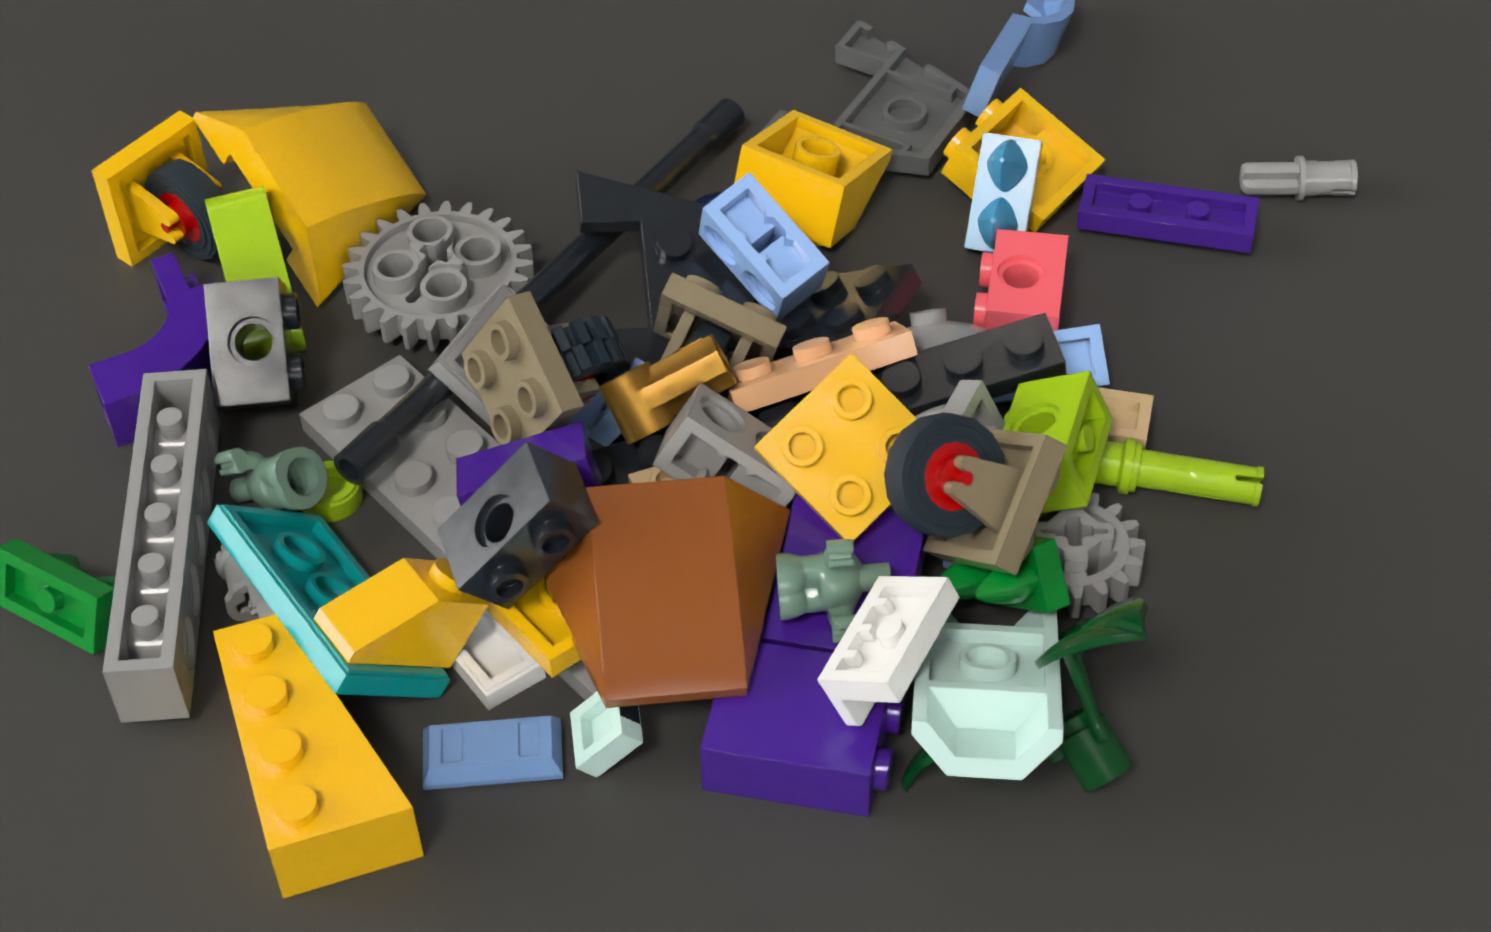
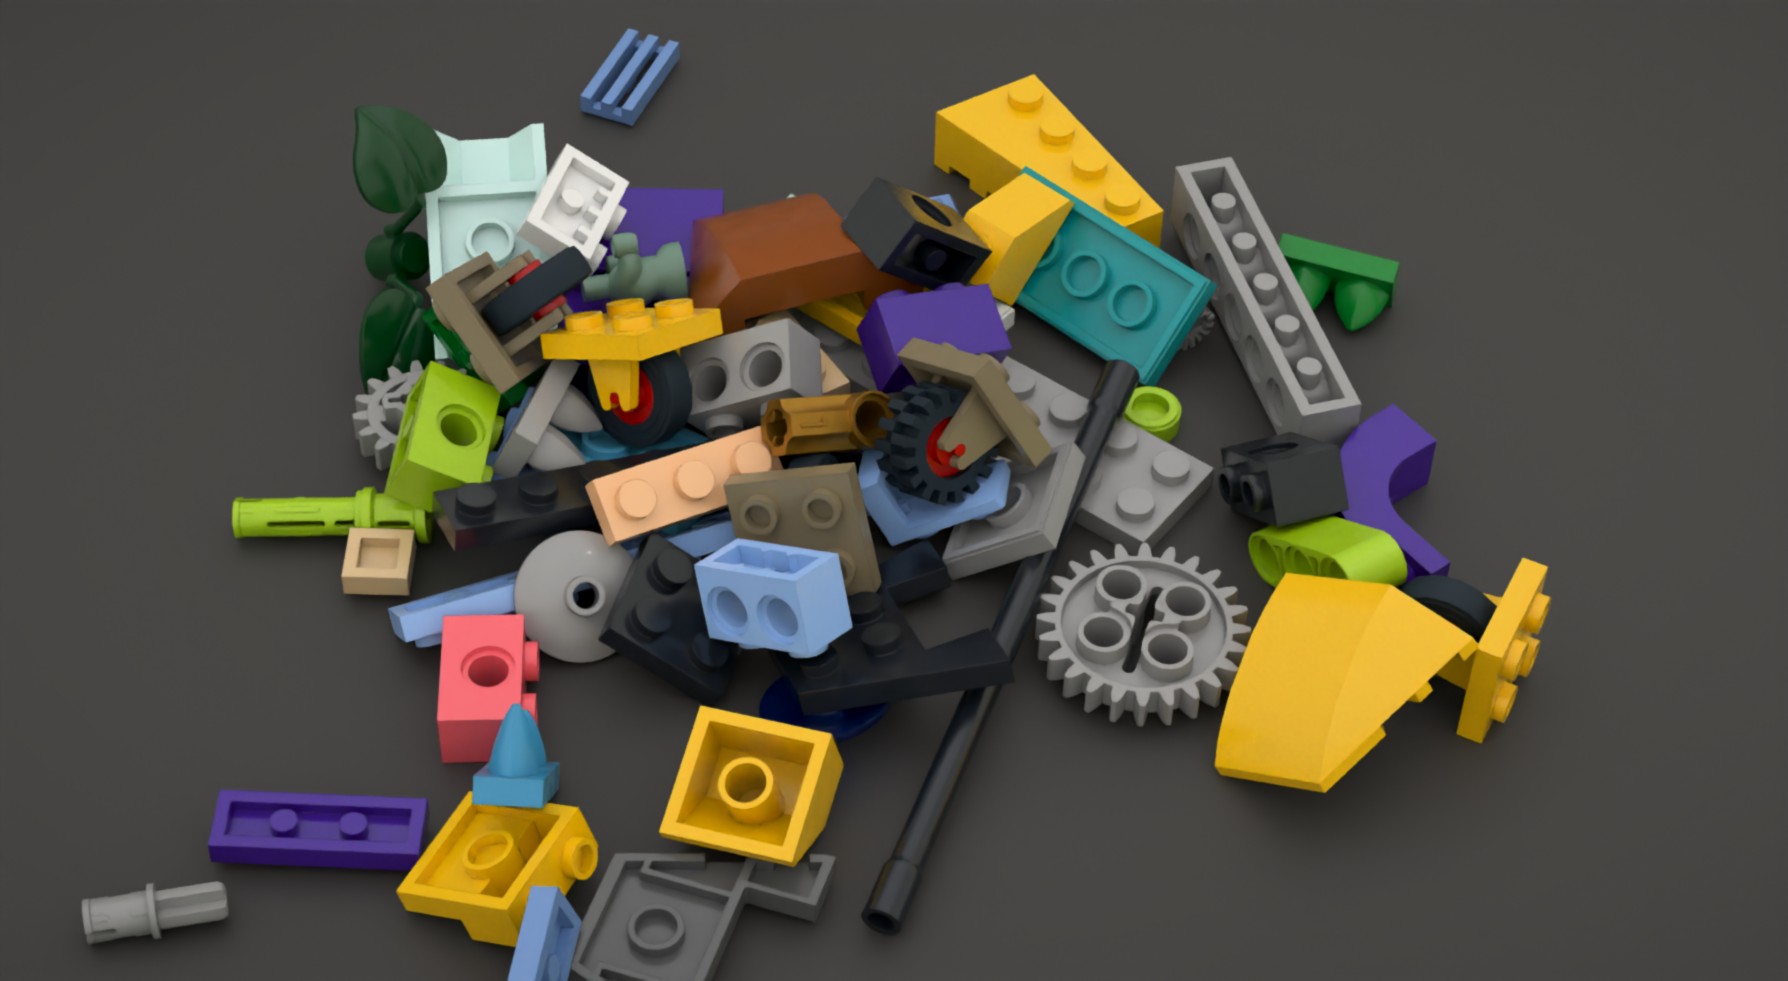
camera: 165 degrees right, 0 degrees up
(278, 482) = (1193, 376): sand green piece -> none

